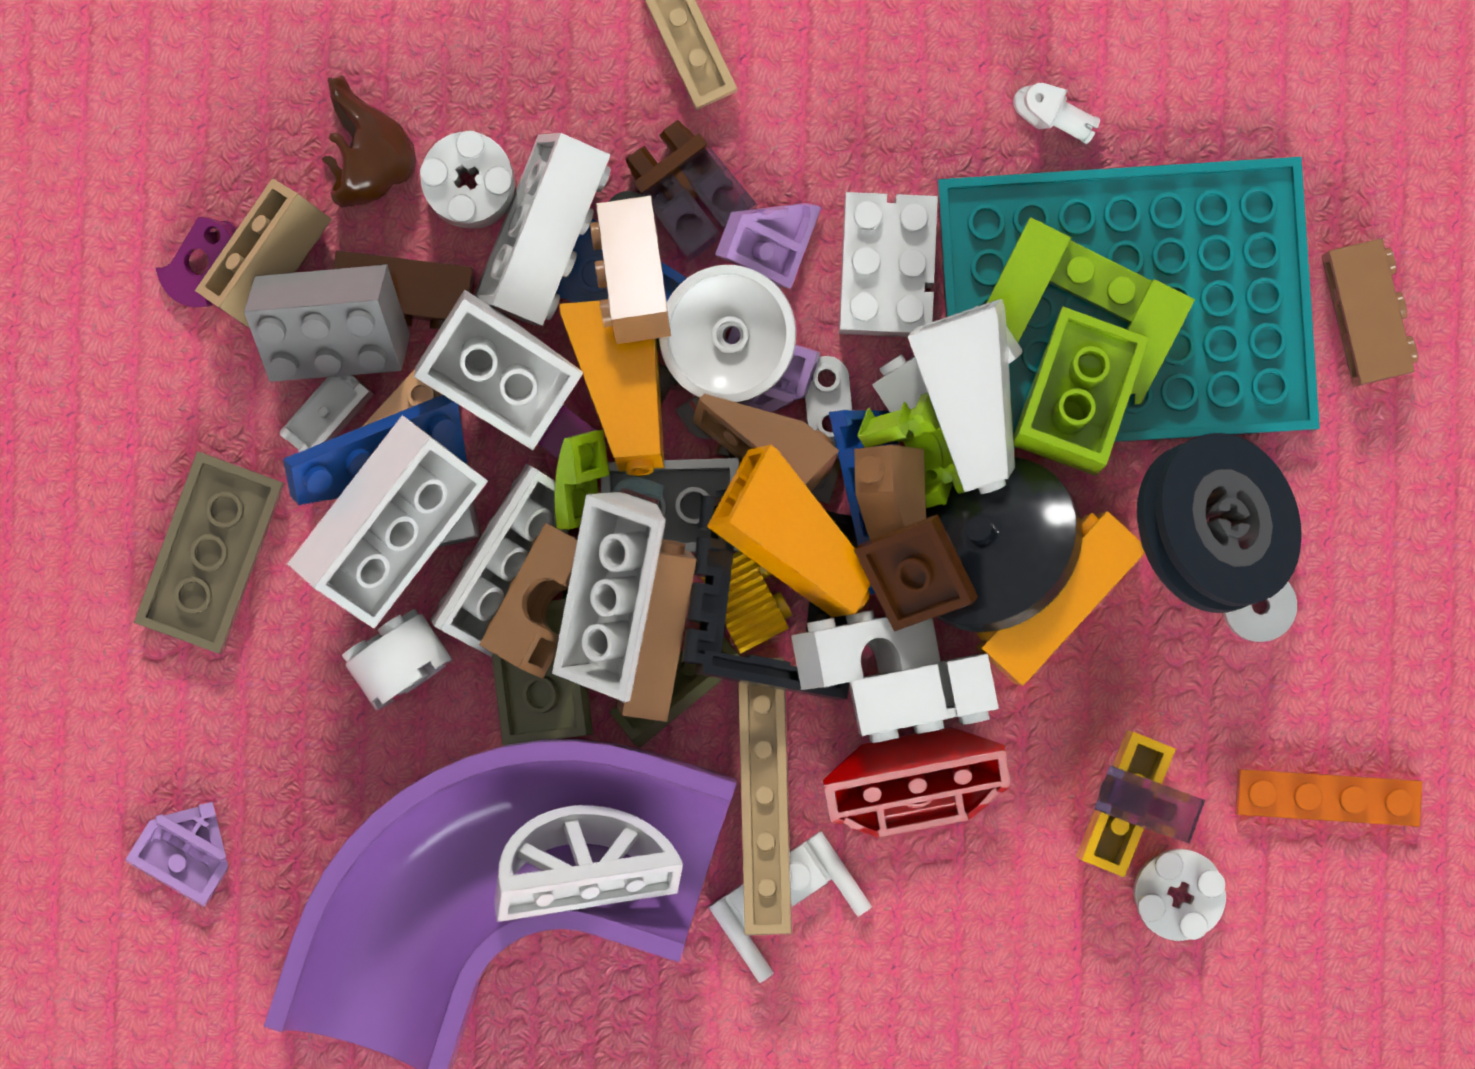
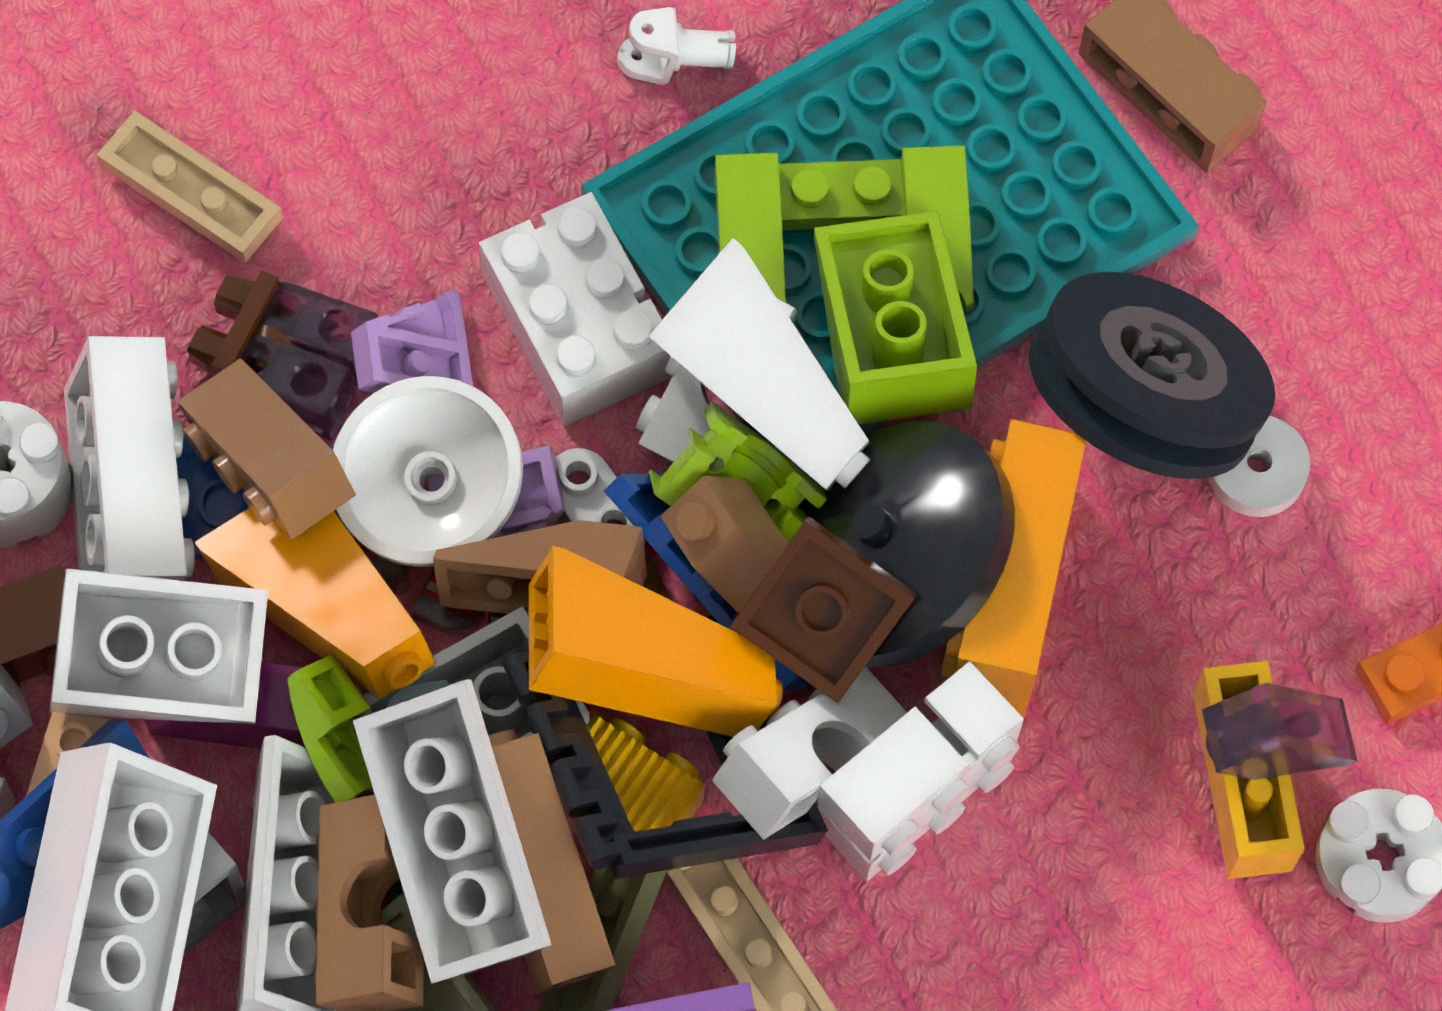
camera: 30 degrees left, 20 degrees down
(916, 782) = (979, 888): red wedge -> none

